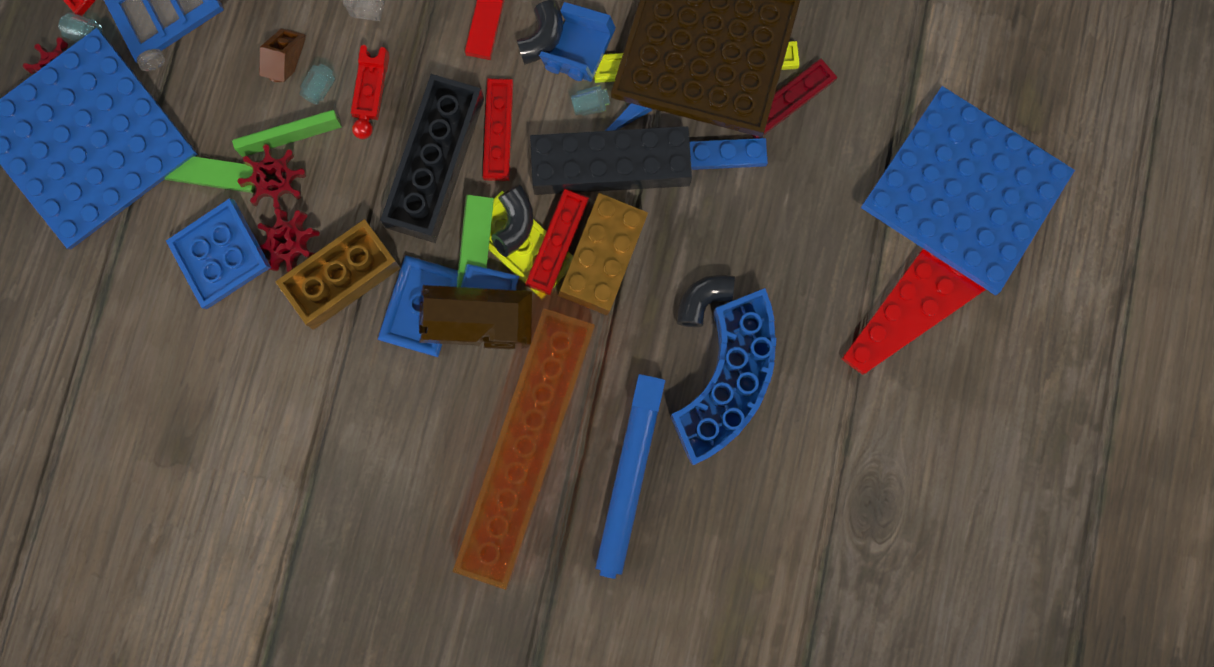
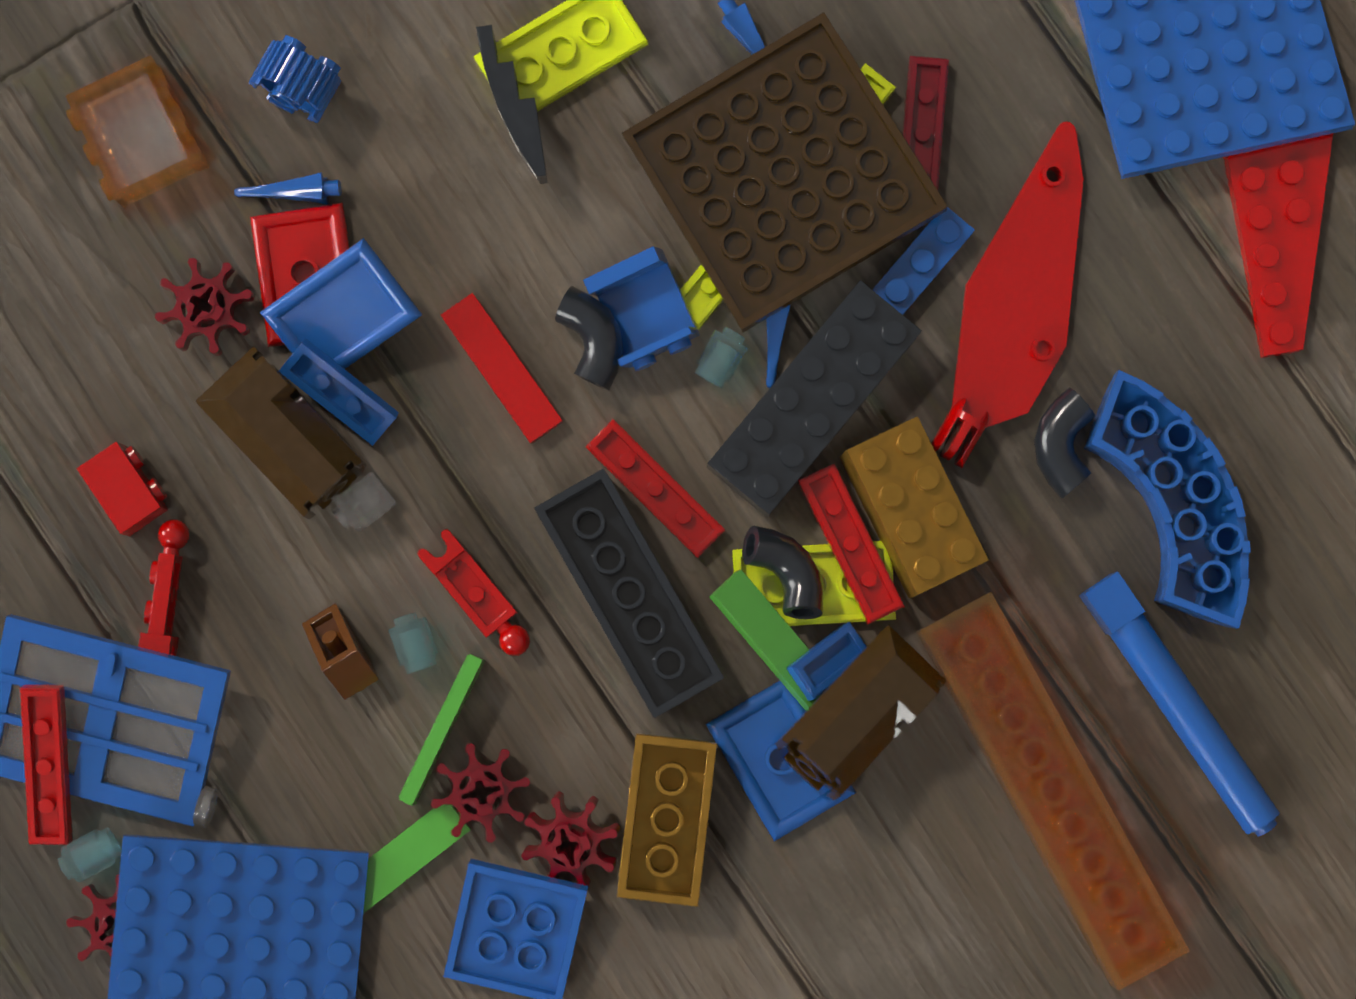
camera: 45 degrees left, 5 degrees up
(753, 215) = (1018, 301): none -> red wing

